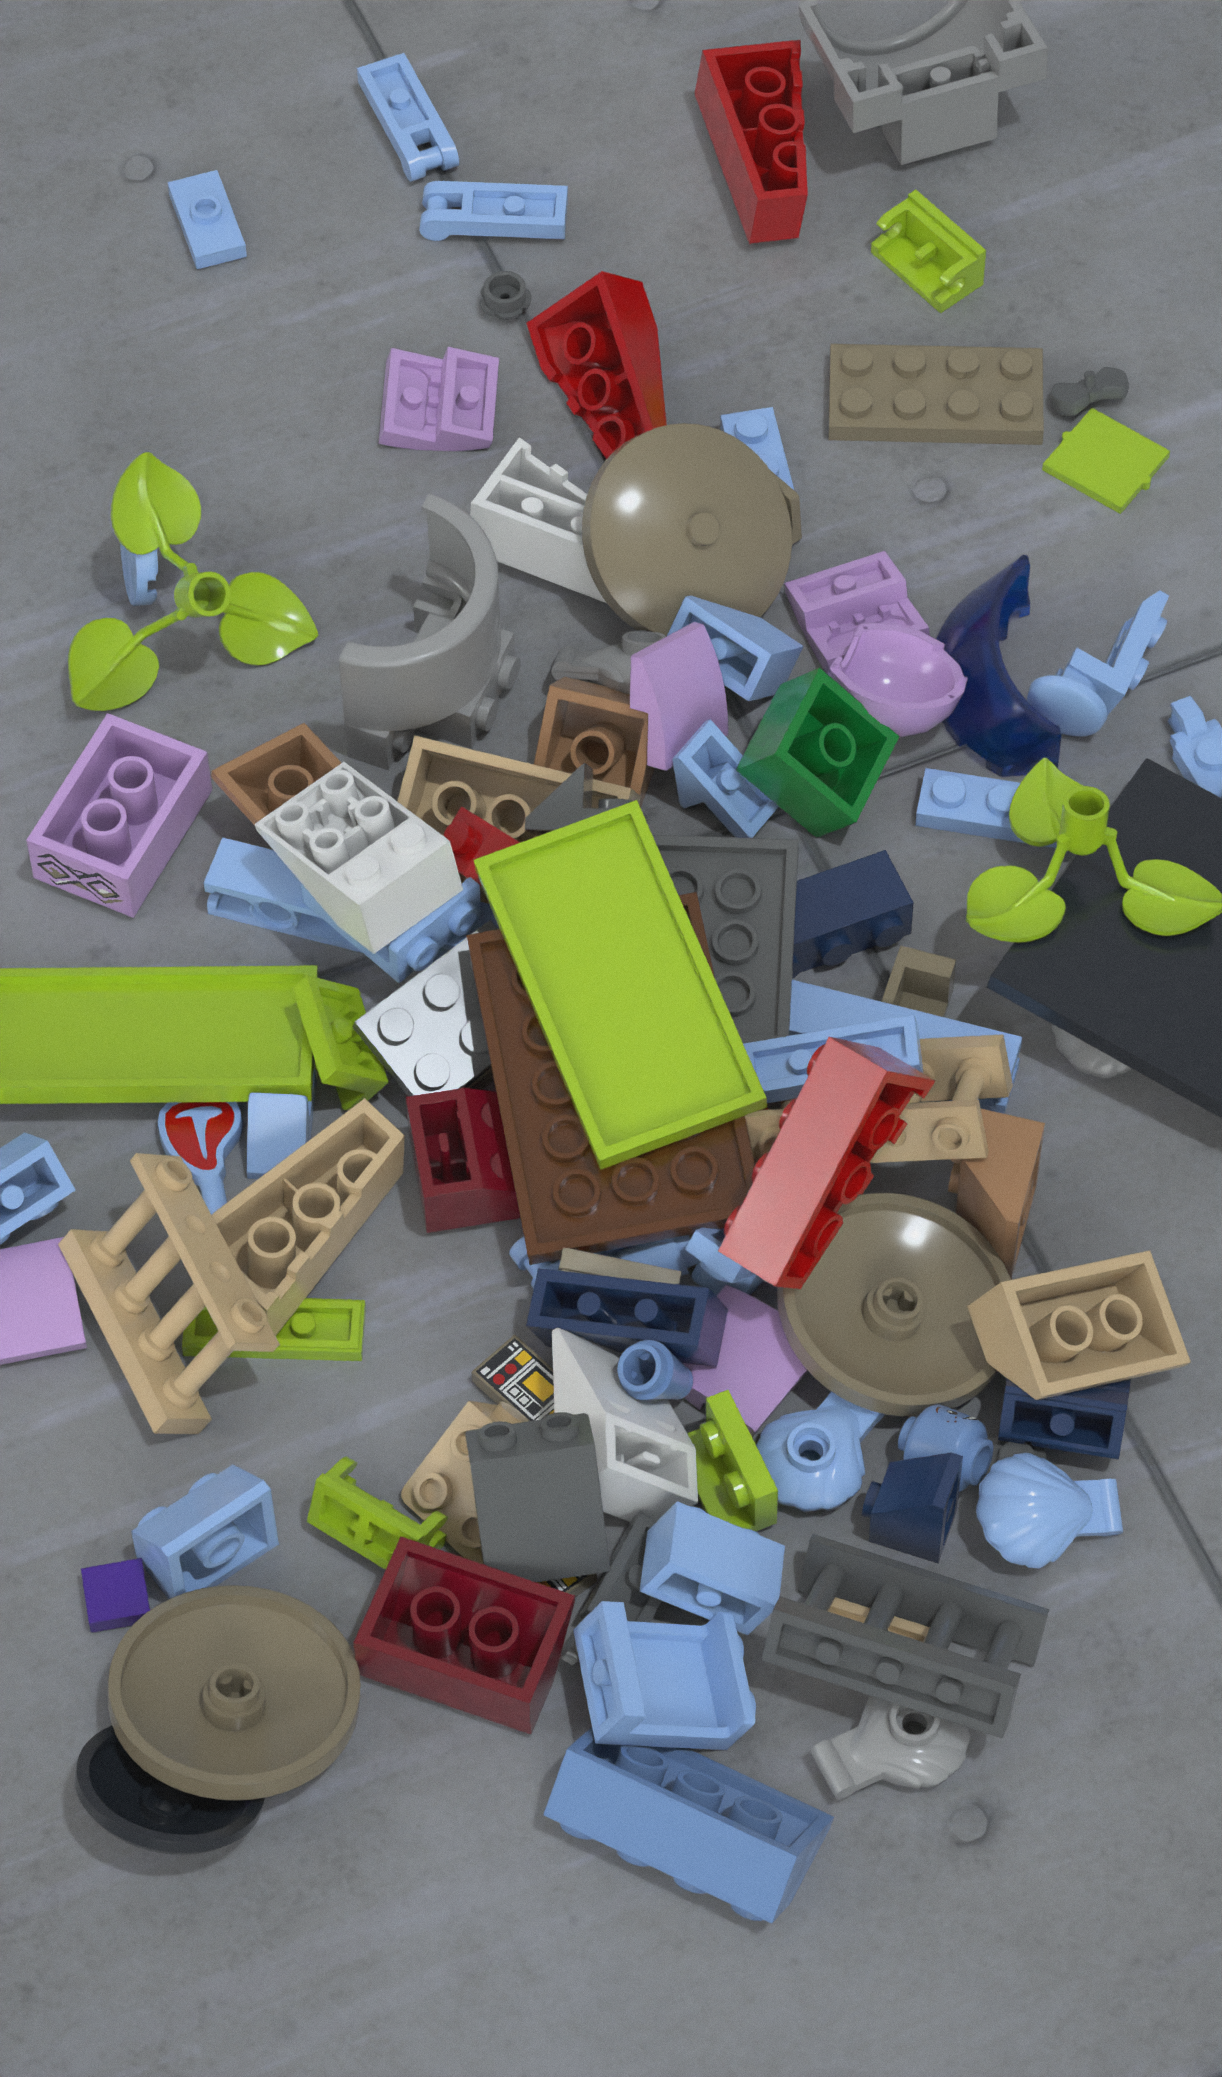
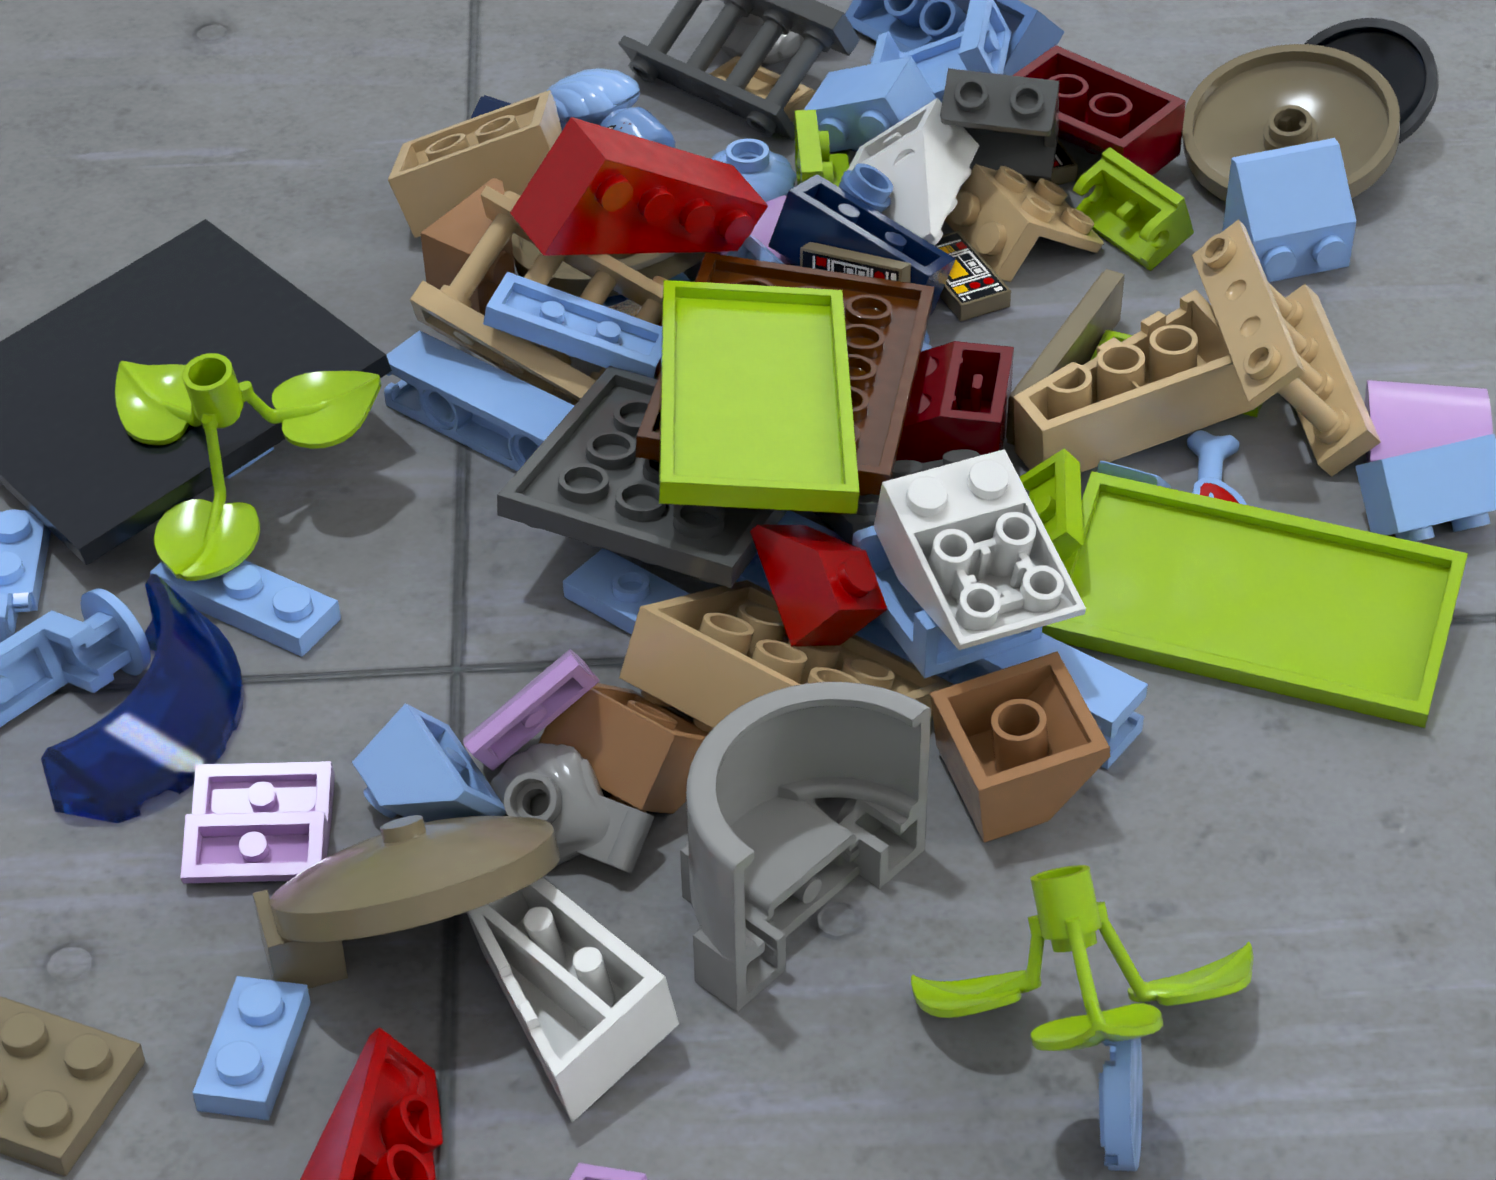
camera: 160 degrees left, 15 degrees down
(115, 1594) = (1378, 236): dark purple tile -> none
(119, 815) = (1224, 793): lavender brick -> none
(386, 1285) = (1077, 336): none -> dark tan tile
(569, 804) = (706, 585): dark grey slope -> none
(708, 774) = (521, 654): light blue slope -> none
(817, 753) = (415, 629): green brick -> none
(849, 912) = (457, 534): dark blue brick -> none
(900, 677) = (279, 681): lavender cylinder -> none
(915, 1505) = (683, 100): dark blue slope -> none
(921, 981) = (446, 459): dark tan panel -> none

